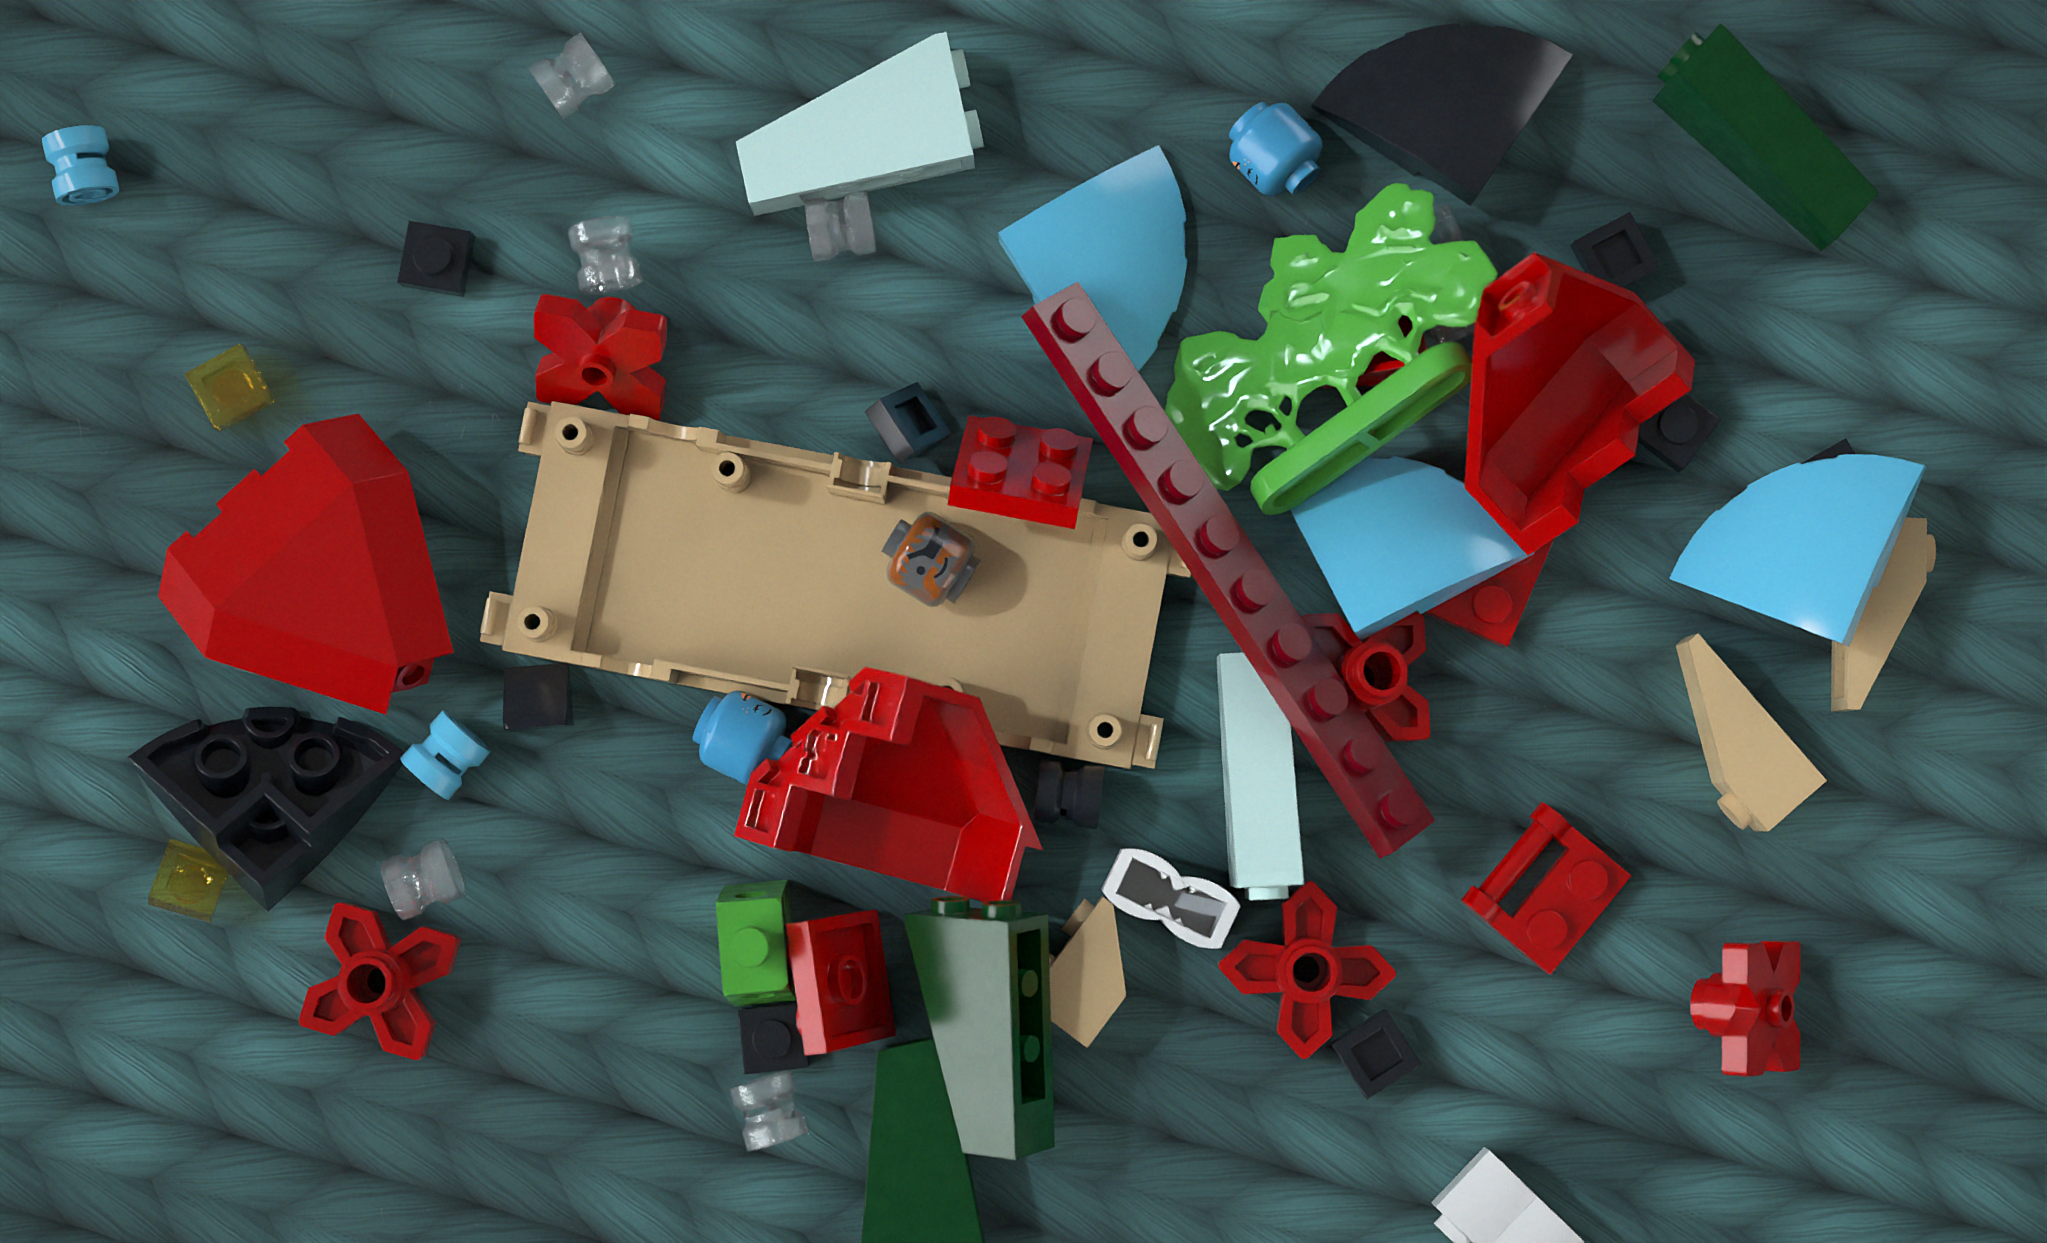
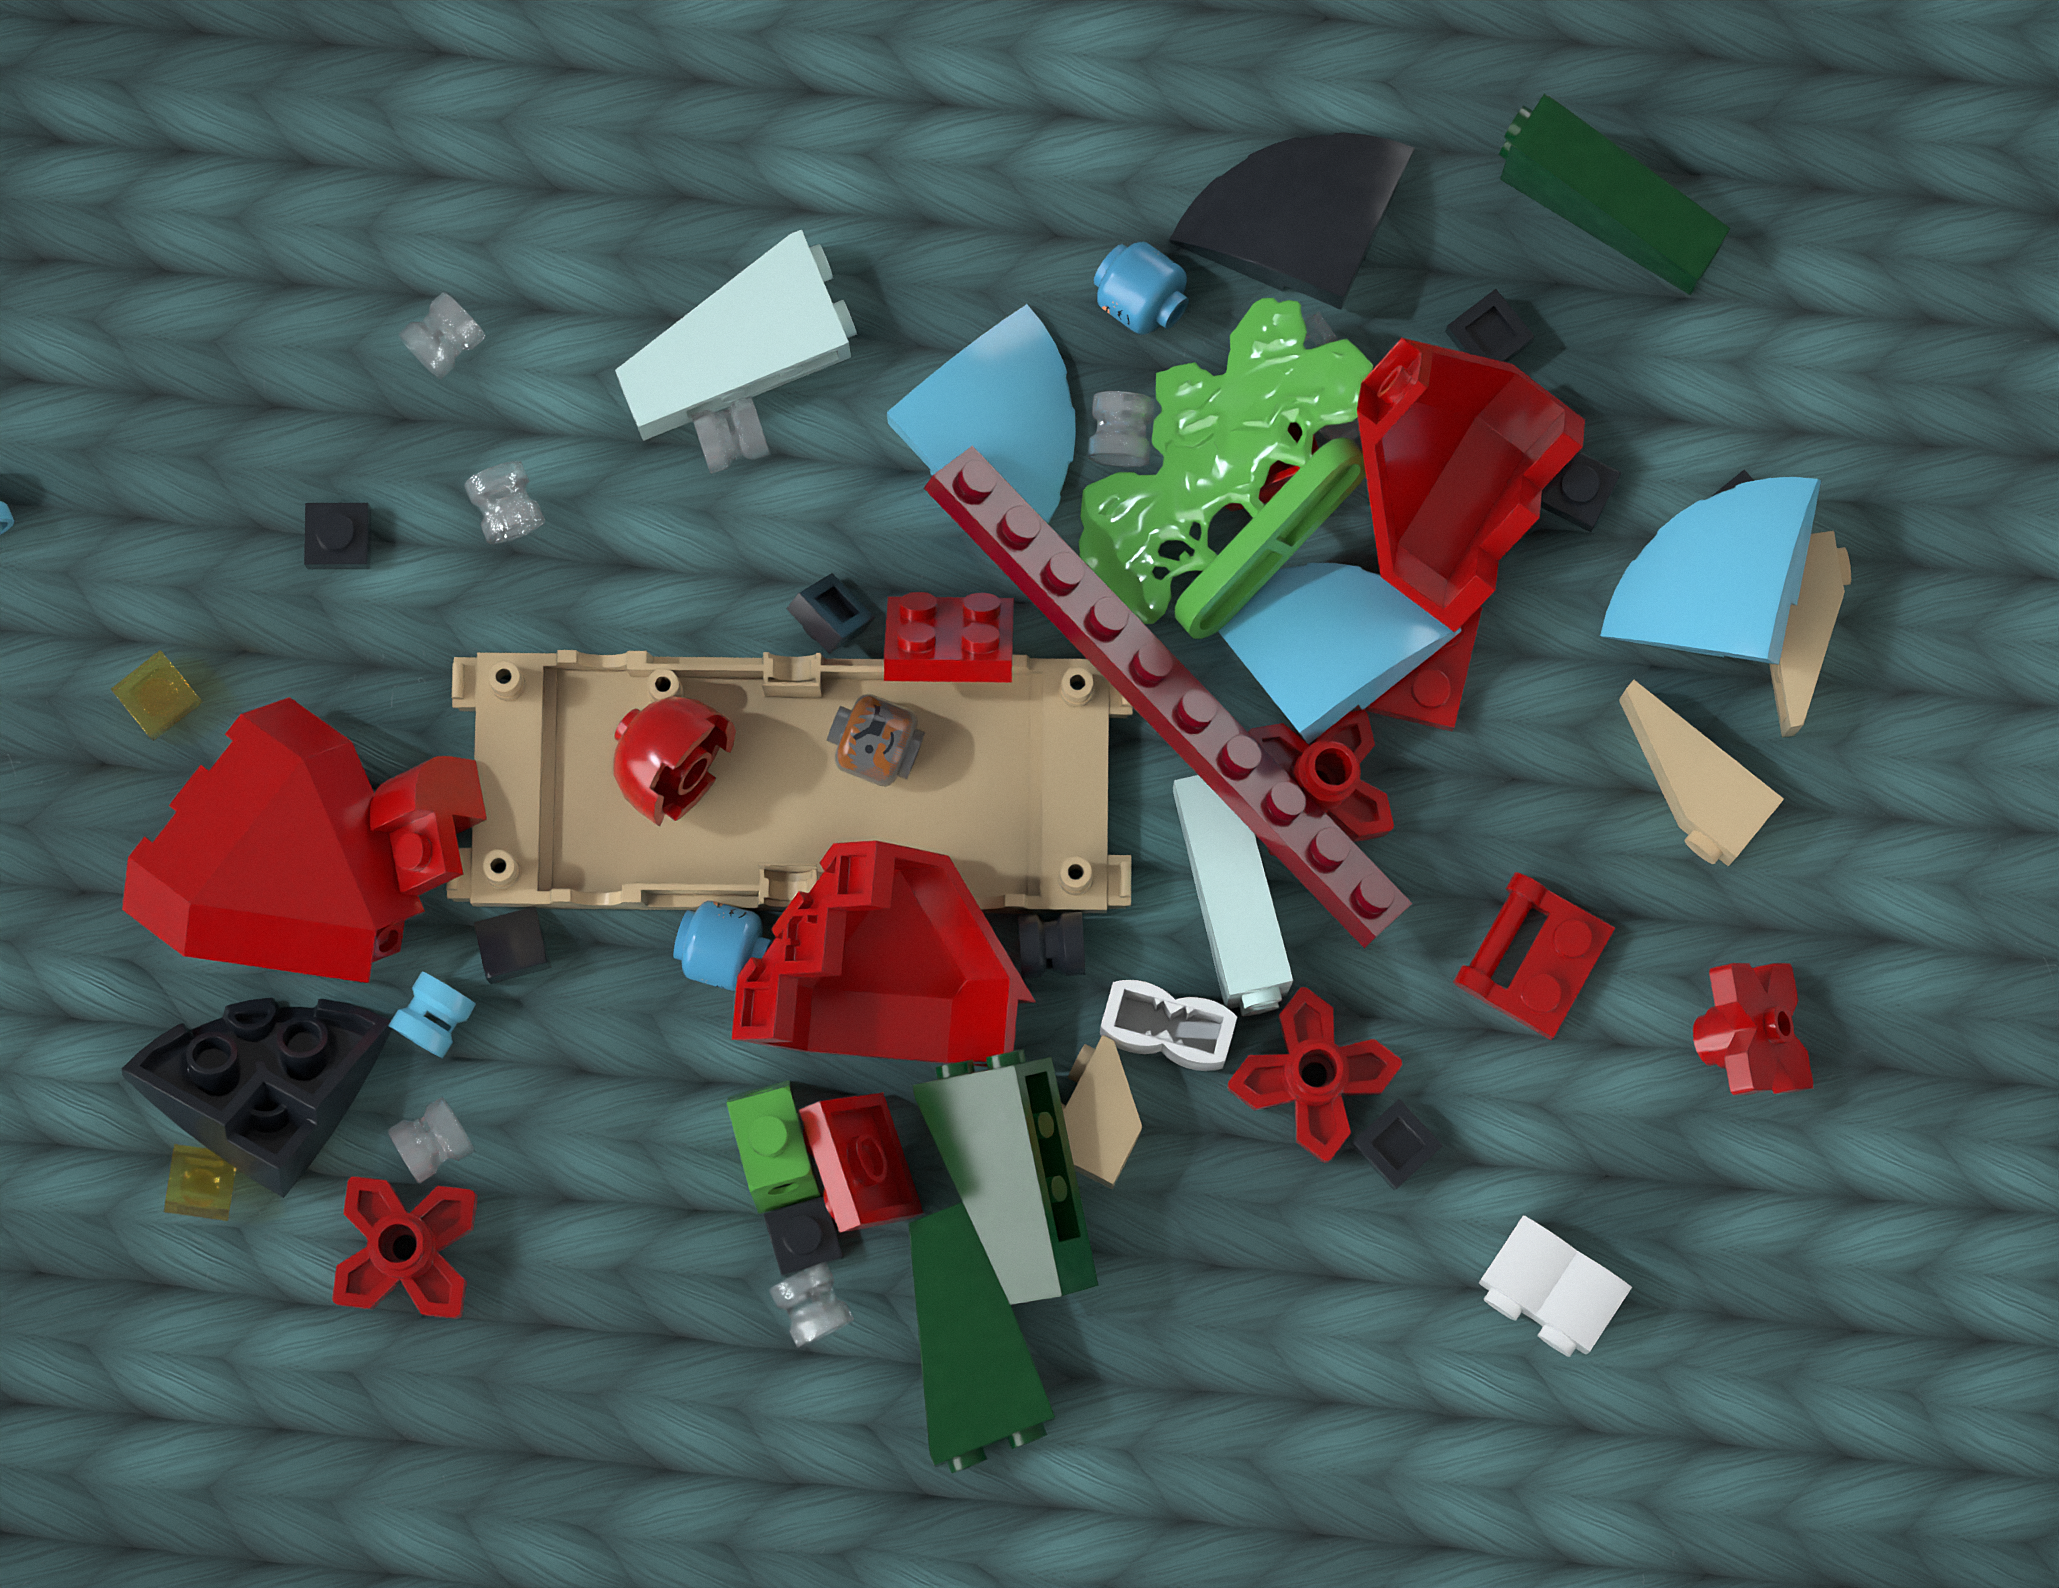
camera: 15 degrees left, 5 degrees down
(465, 556) = (423, 815): none -> red brick
(600, 351) = (518, 594): red plant -> none
(718, 540) = (667, 755): none -> red cylinder
(1230, 288) = (1121, 429): none -> clear wheel

